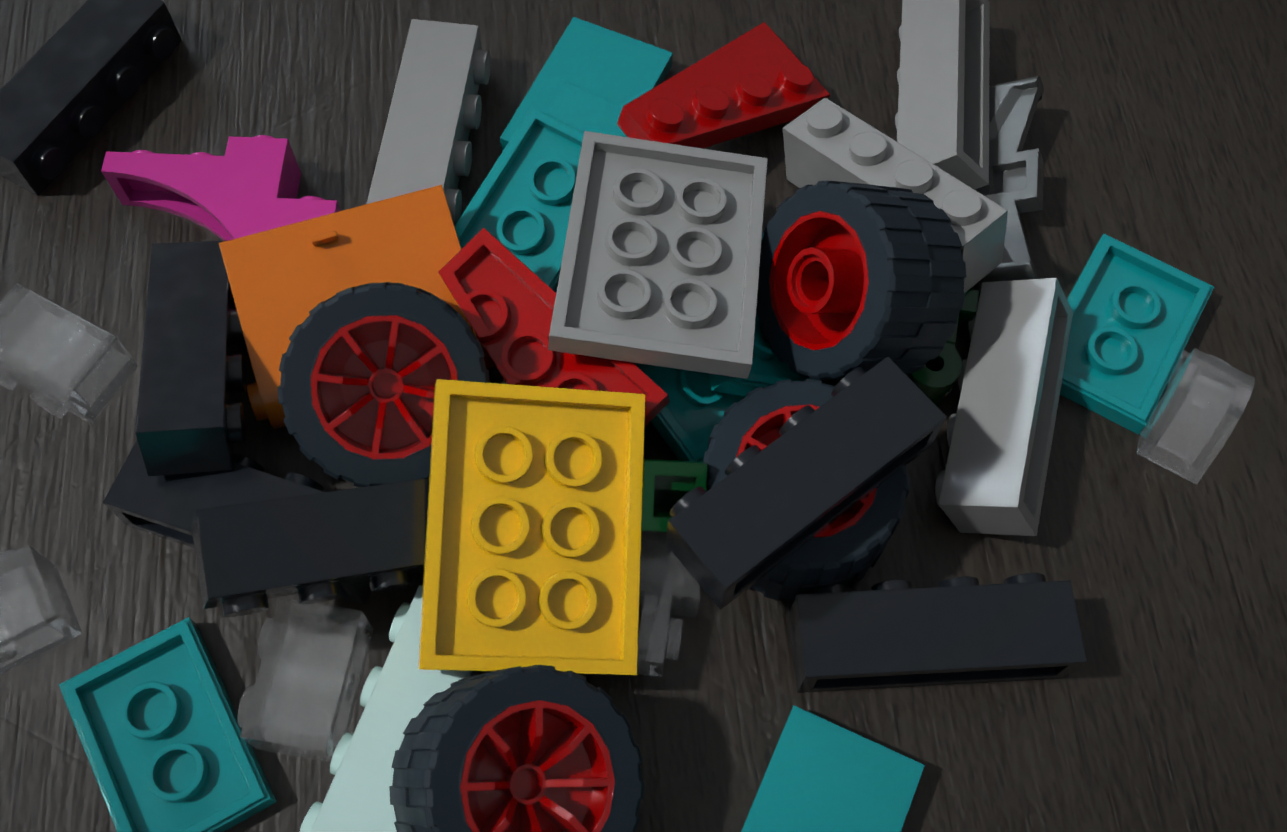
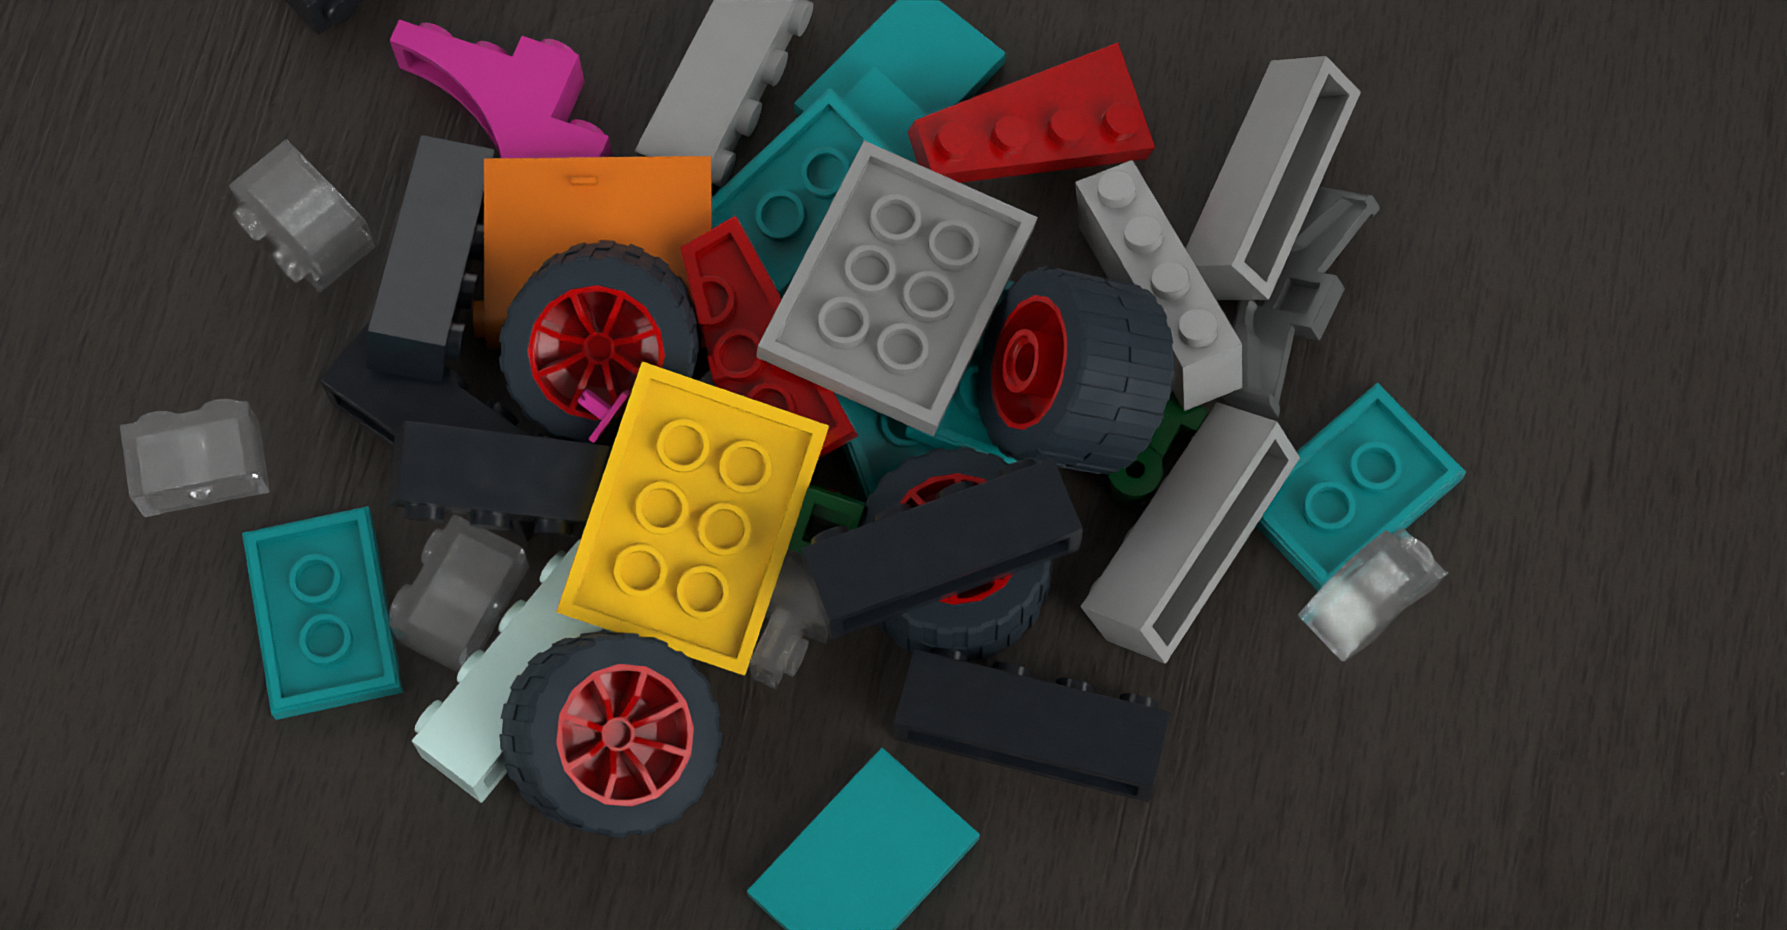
camera: 20 degrees right, 5 degrees up
(408, 444) = (602, 410): none -> dark pink piece

